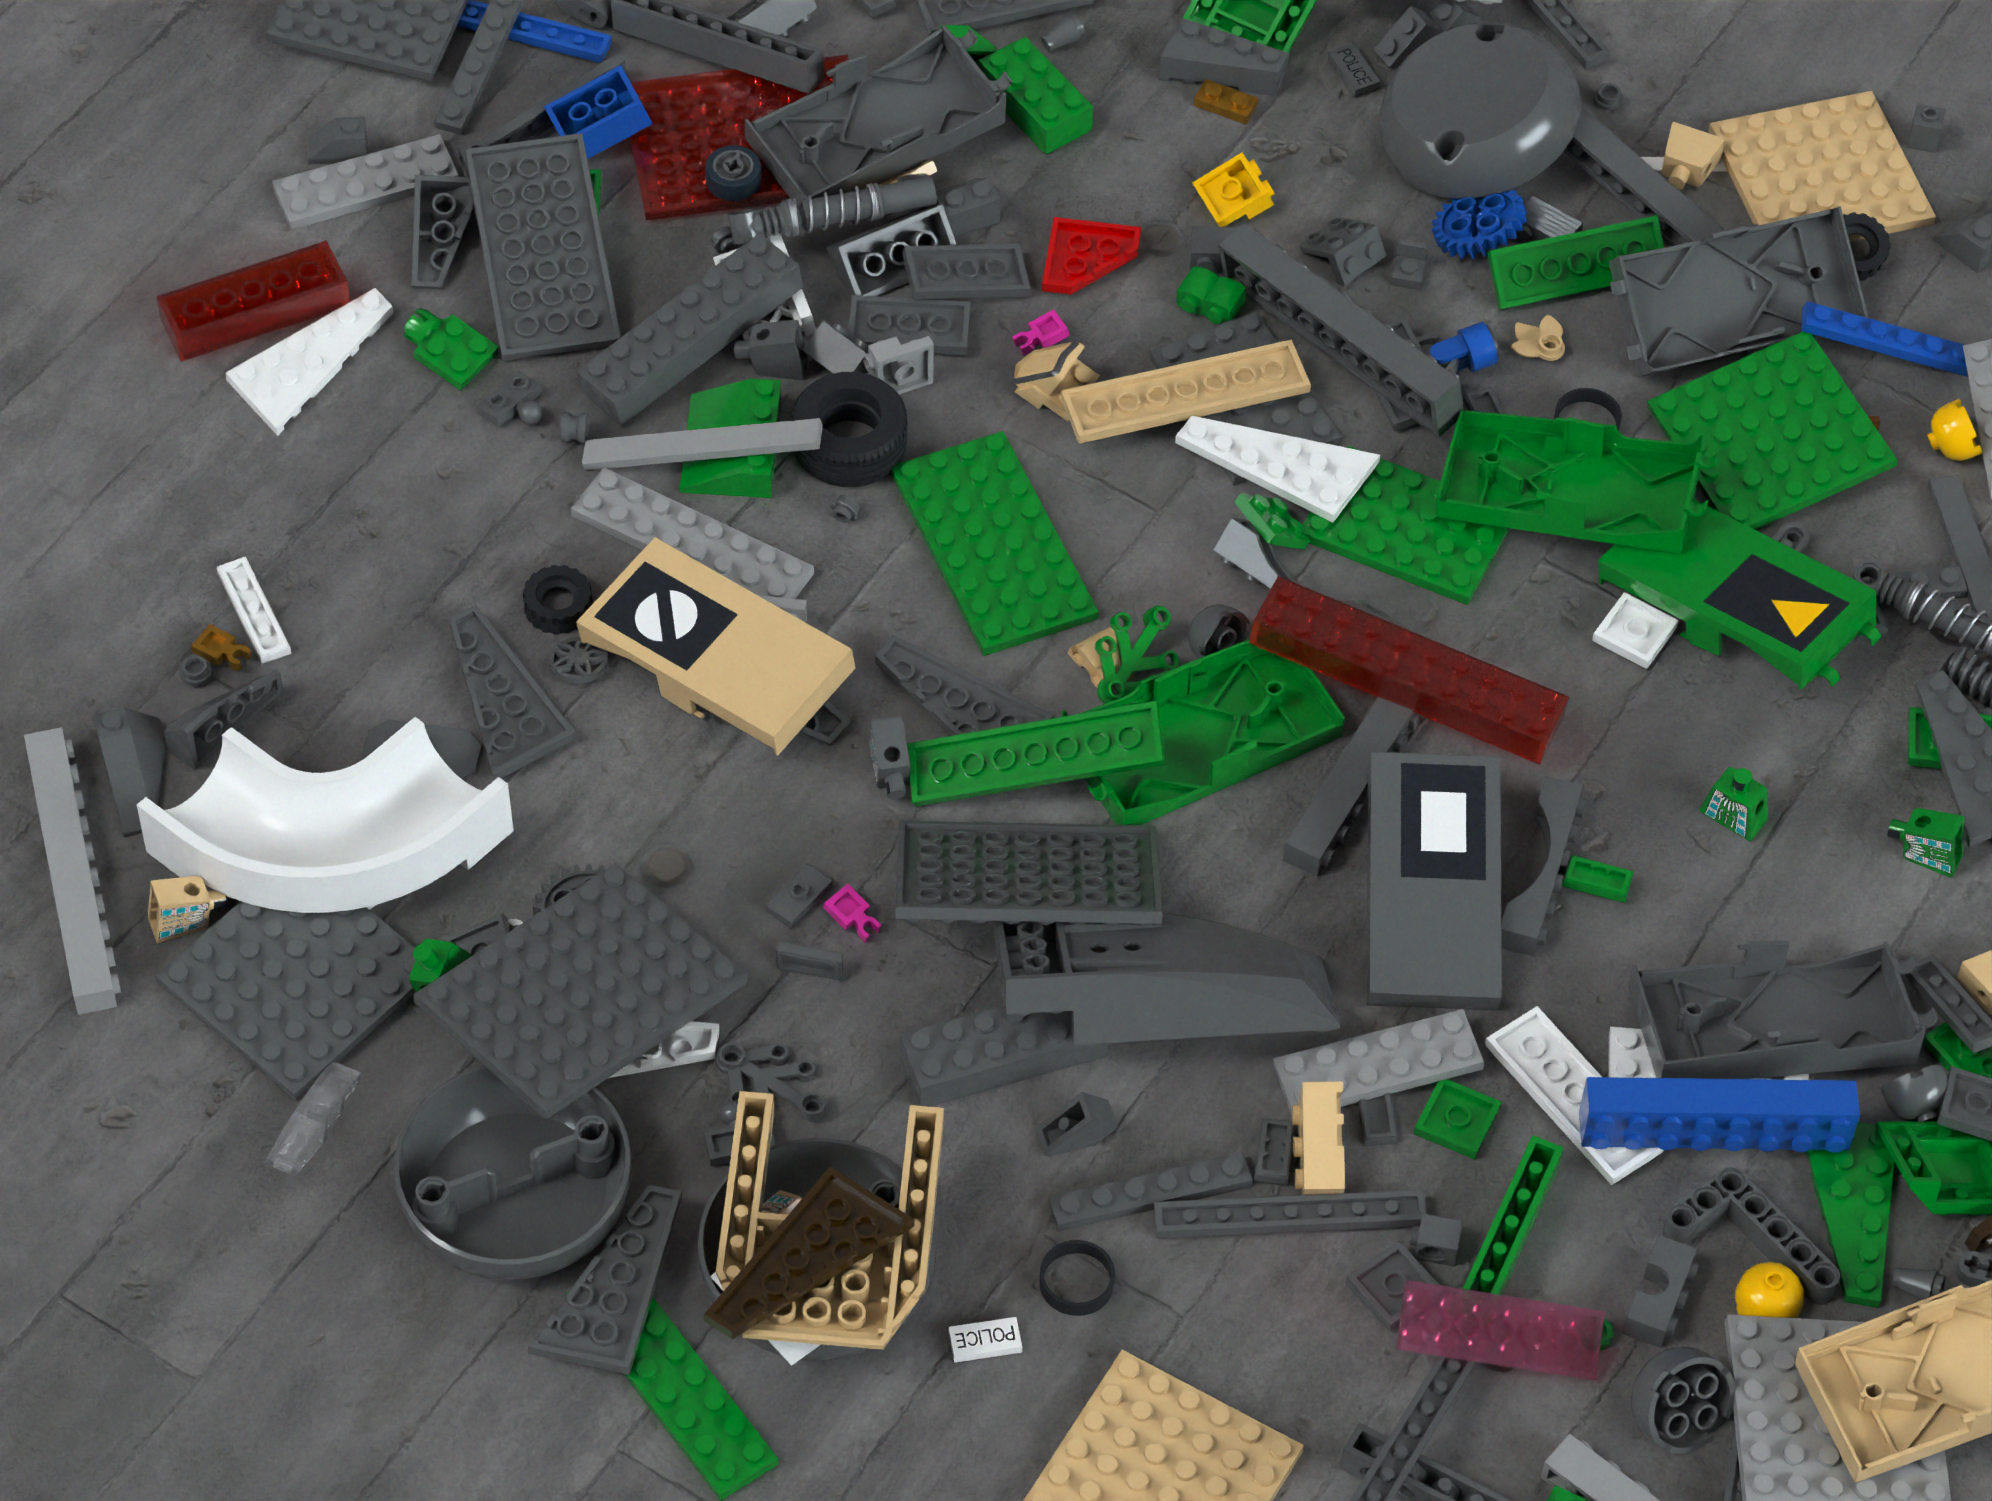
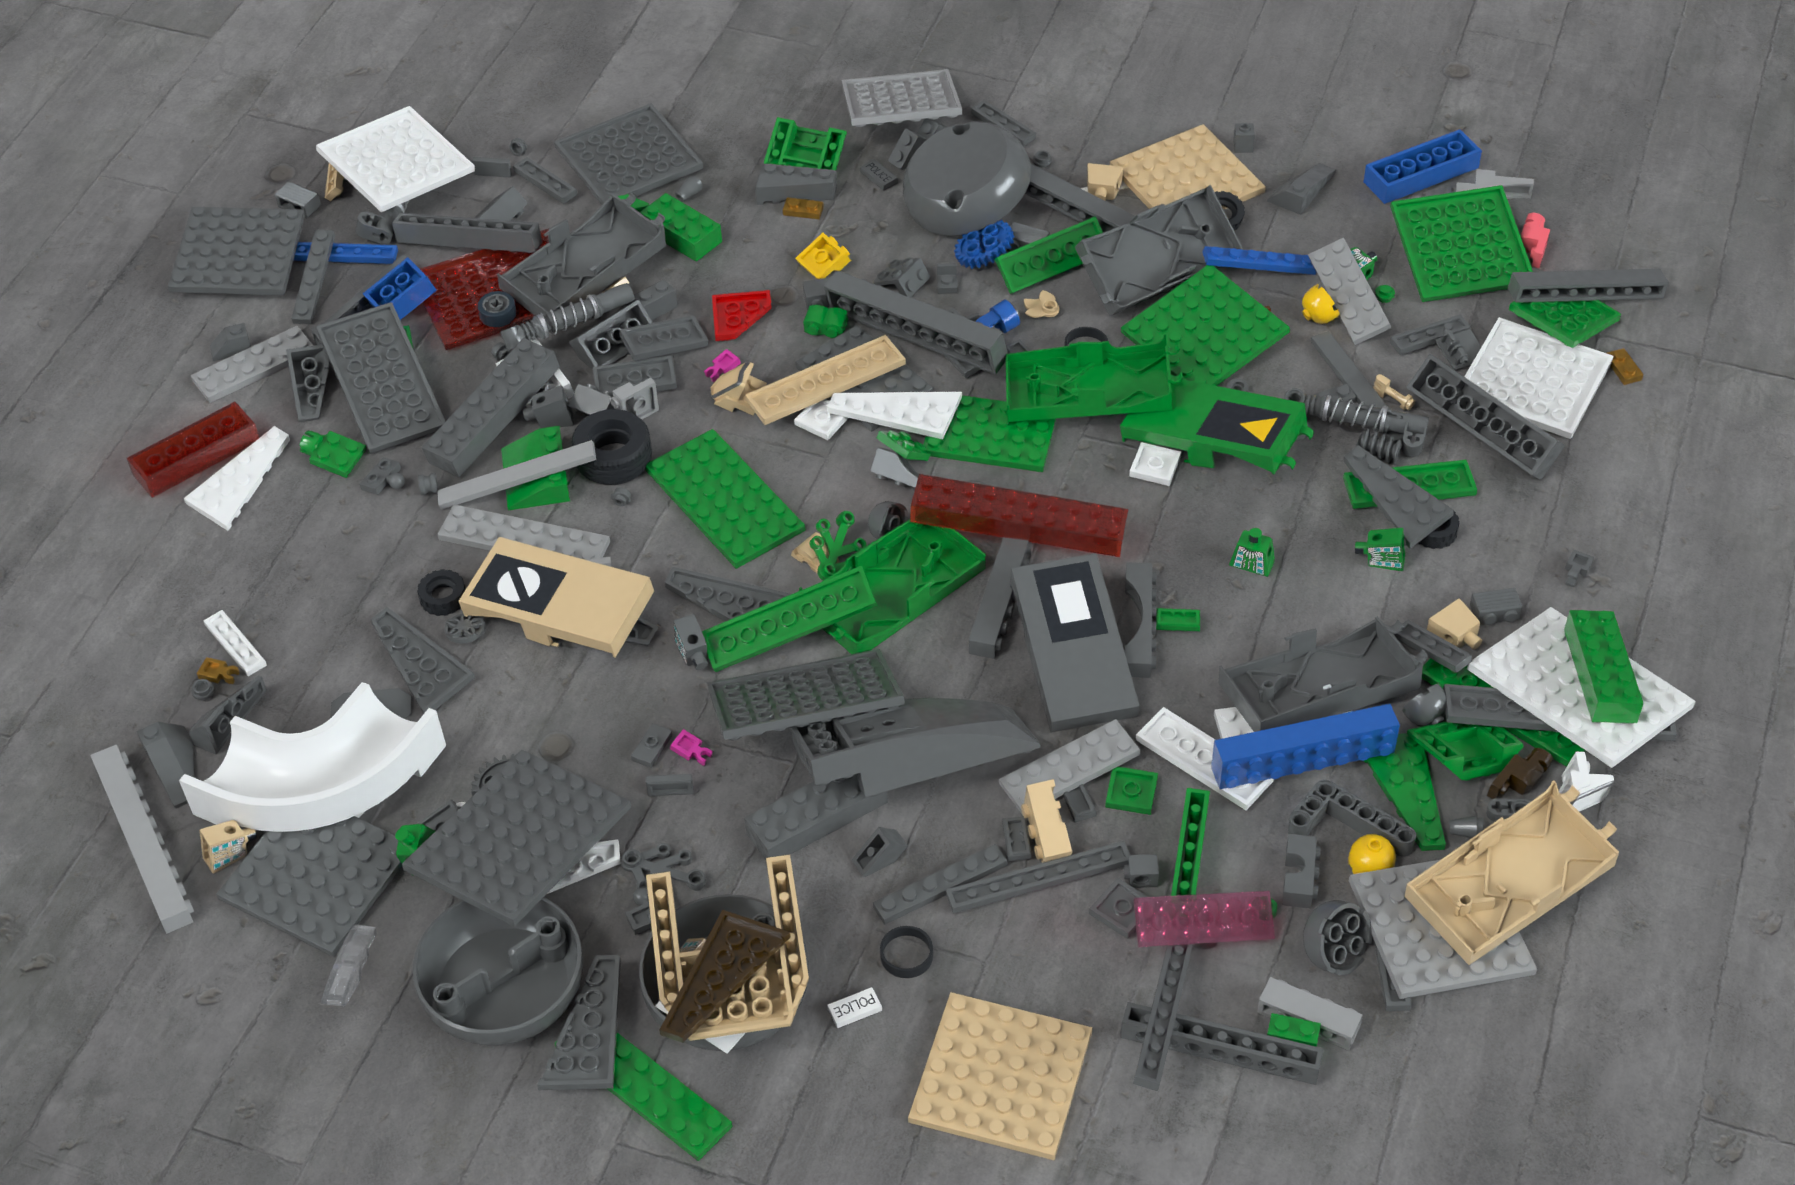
camera: 10 degrees left, 5 degrees down
(1160, 454) = (818, 421): none -> white plate

